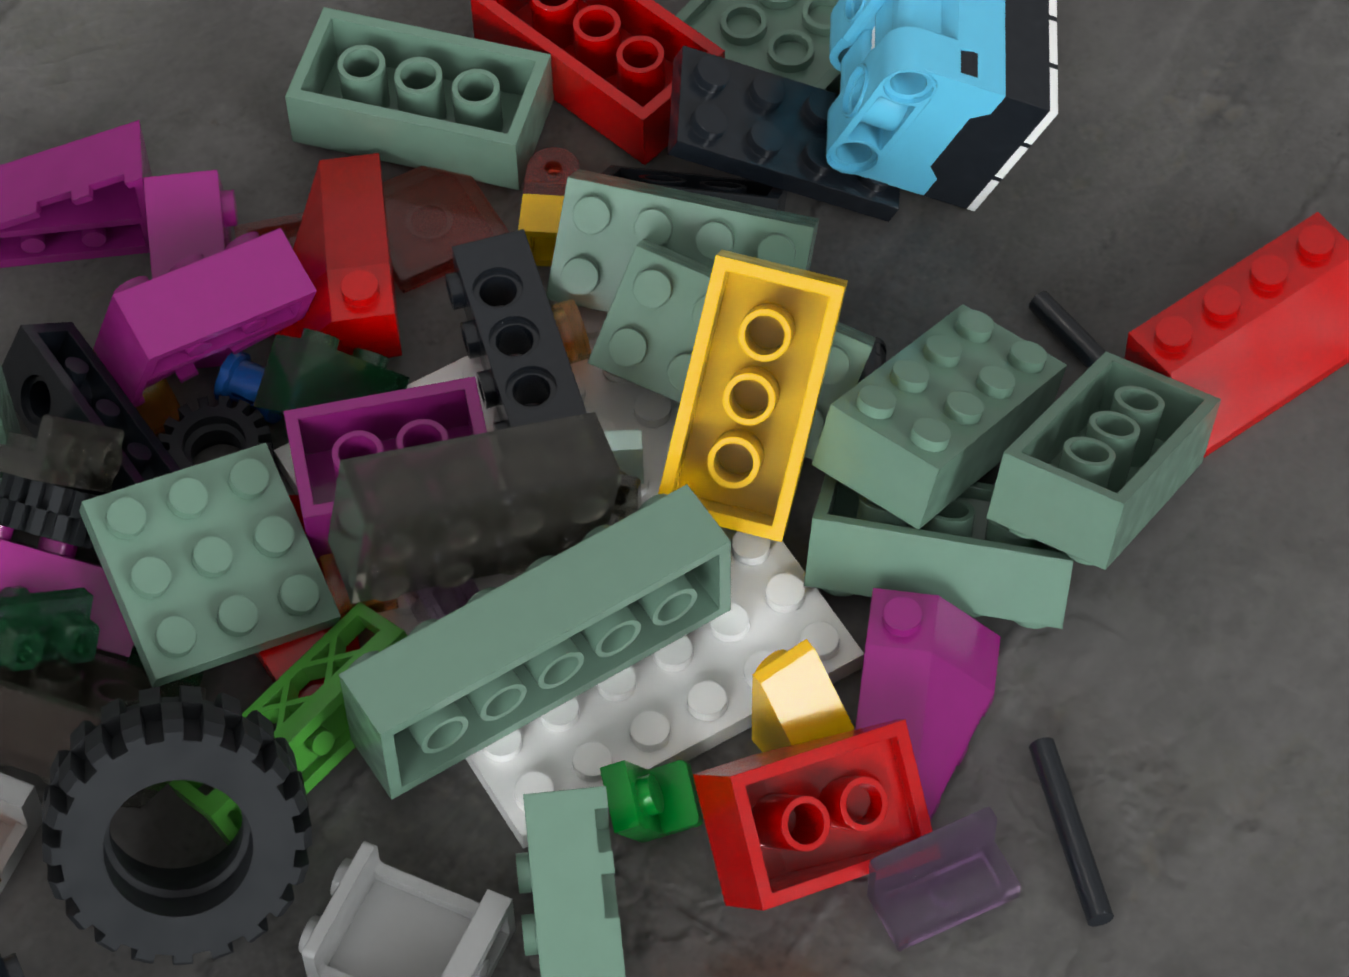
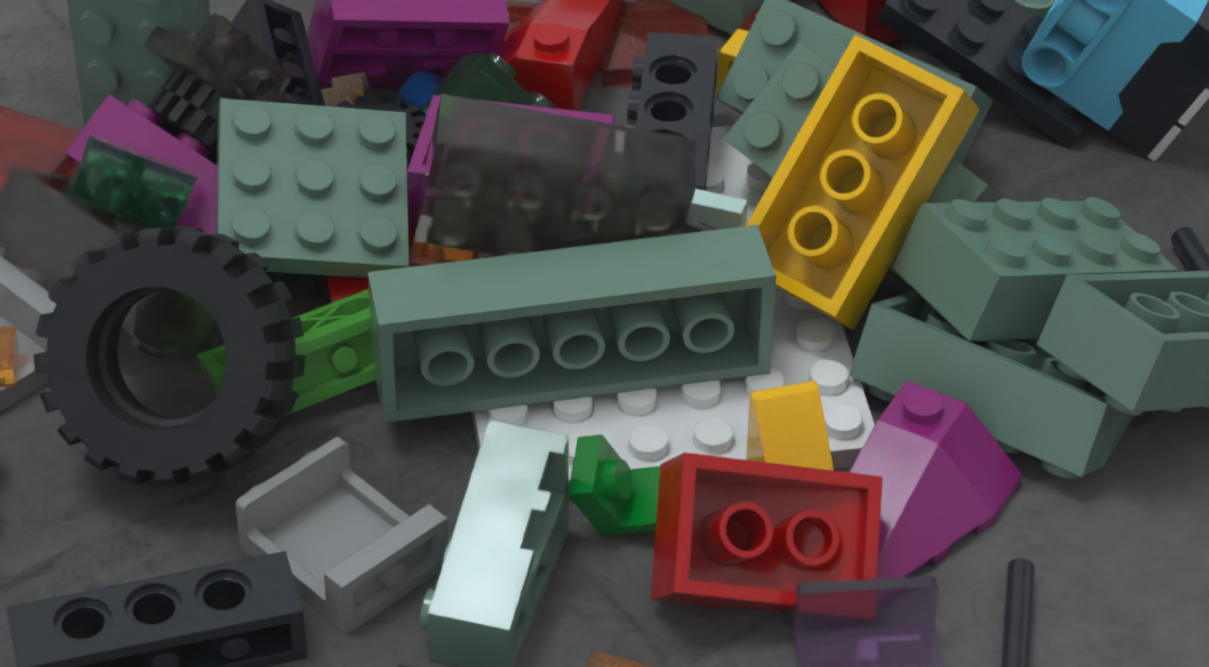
camera: 20 degrees right, 15 degrees down
(571, 330) = (723, 118): clear orange tile -> none

